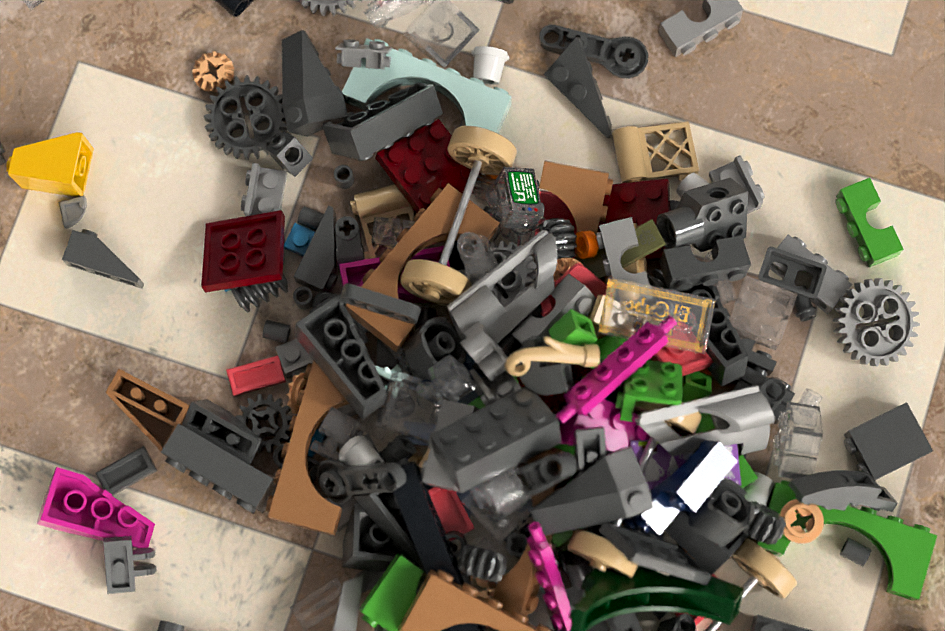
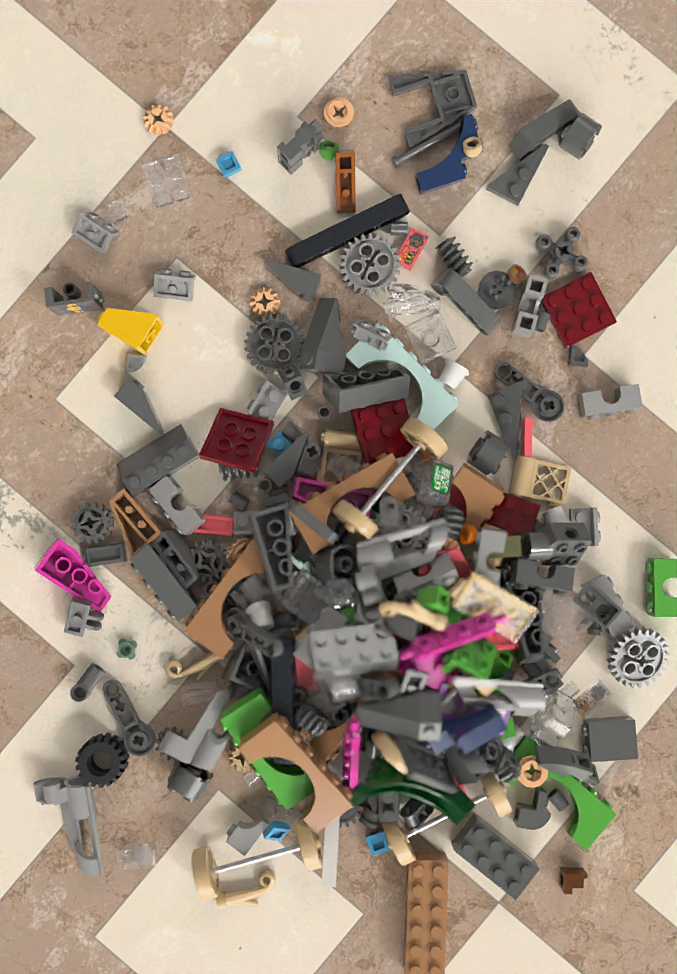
camera: 15 degrees right, 10 degrees up
(88, 94) = (174, 284): none -> light grey bracket
(102, 429) = (90, 515): none -> dark grey gear
(151, 321) = (156, 460): none -> dark grey slope
(178, 357) = (166, 493): none -> light grey arch
(197, 591) = (126, 654): none -> sand green plate
(246, 28) = (299, 281): none -> dark grey slope
(308, 567) = (200, 666): none -> tan plant
(574, 141) = (488, 453): none -> dark grey brick
(614, 103) = (526, 437): none -> coral tile
(833, 584) = (535, 815): none -> dark grey brick
(842, 403) = (592, 699): none -> clear tile

